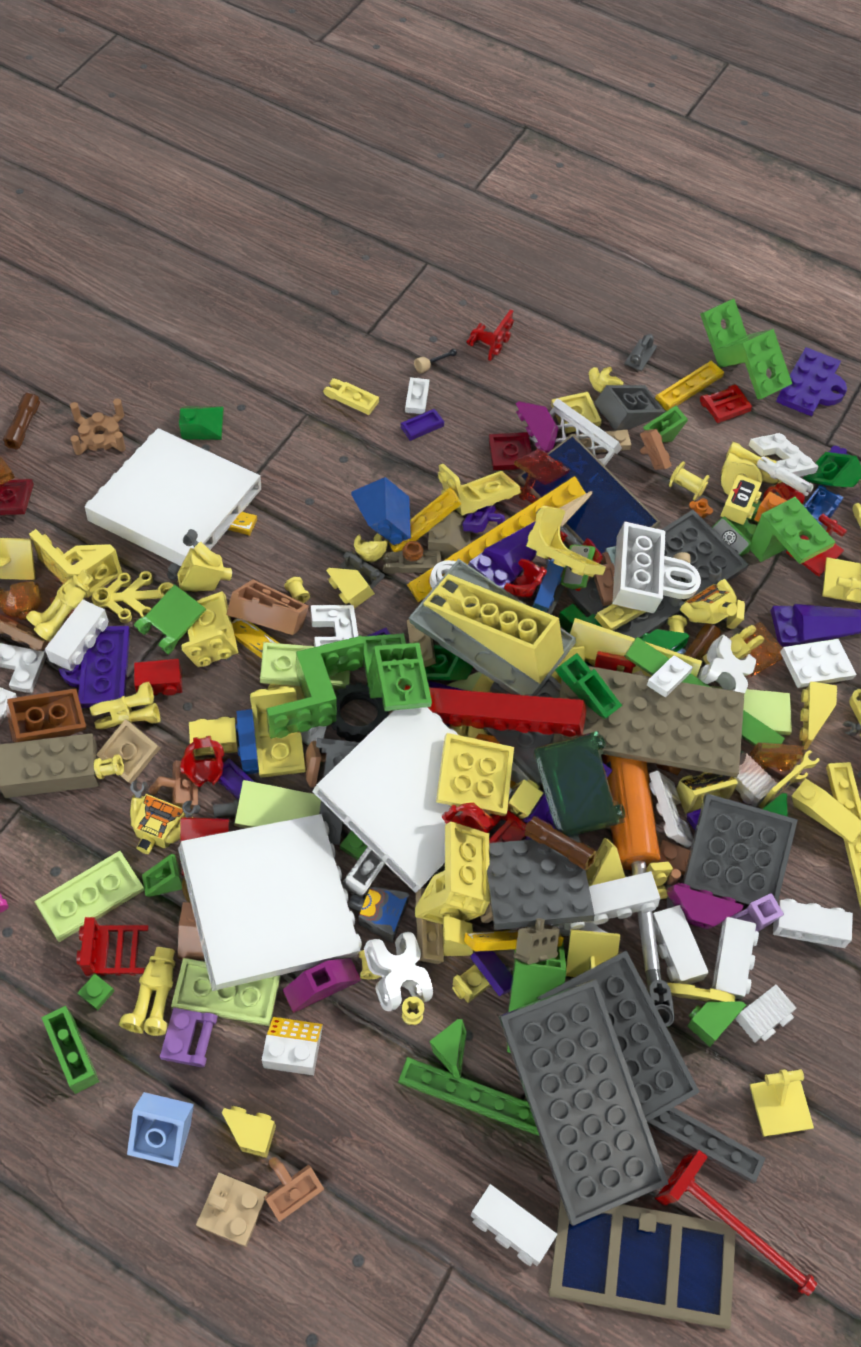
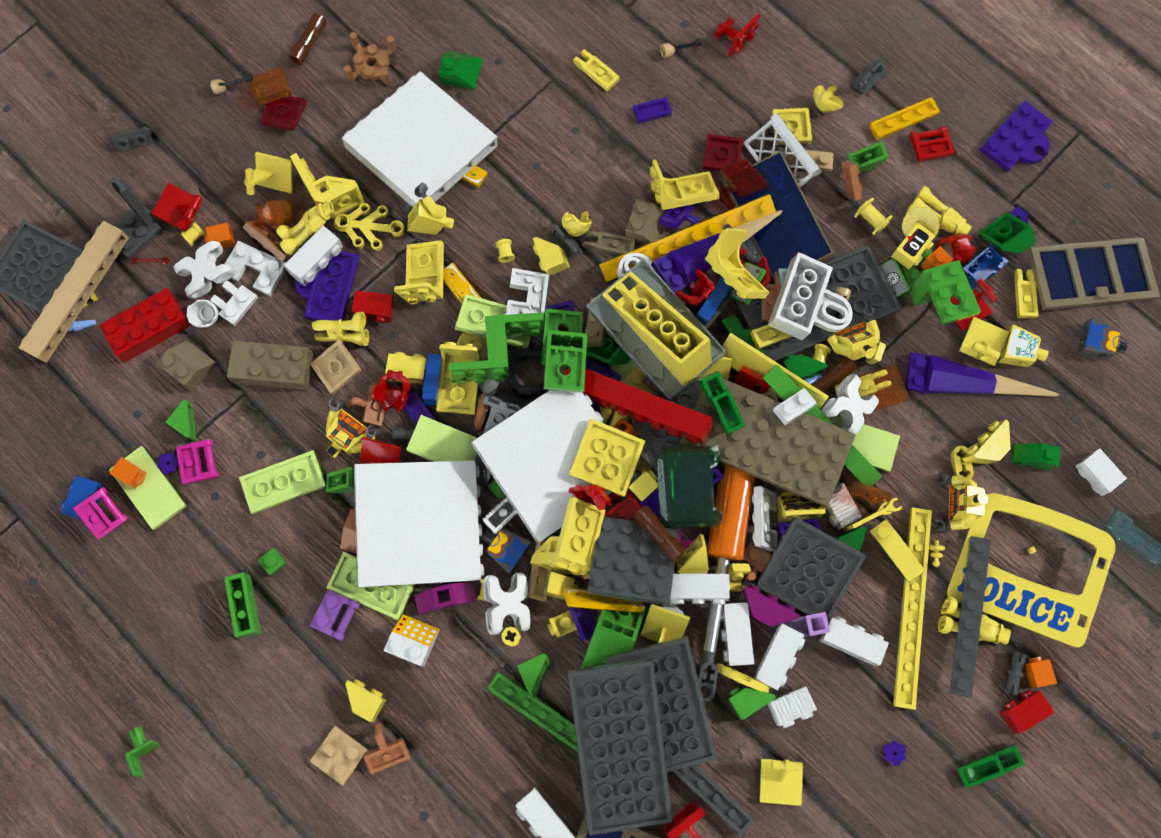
camera: 15 degrees right, 15 degrees up
(45, 716) = (275, 322): dark orange slope -> none
(95, 948) = (278, 525): red plate -> none
(108, 766) = (316, 378): light yellow bush -> none
(156, 978) = (320, 562): light yellow piece -> none
(159, 1129) = (298, 682): light blue slope -> none
(172, 617) = (395, 253): bright green flag -> none
(267, 607) = (475, 263): nougat wedge -> none
(385, 509) = (595, 194): blue slope -> none
(412, 551) = (610, 236): dark orange plate -> none
(417, 395) = (654, 81): white plate -> none
(430, 516) = (627, 210): yellow tile -> none
(537, 943) = (618, 612): dark tan piece -> none
(539, 424) = (754, 135): magenta slope -> none
(628, 406) = (841, 129): dark grey slope -> none
(701, 507) = (881, 247): orange plate -> none
(756, 350) = (969, 96): bright green bracket -> none
(778, 472) = (954, 226): white pin -> none
(791, 456) = (976, 217): white plate -> none
(818, 662) = (933, 414): white plate -> none
(818, 705) = (922, 452): light yellow slope -> none

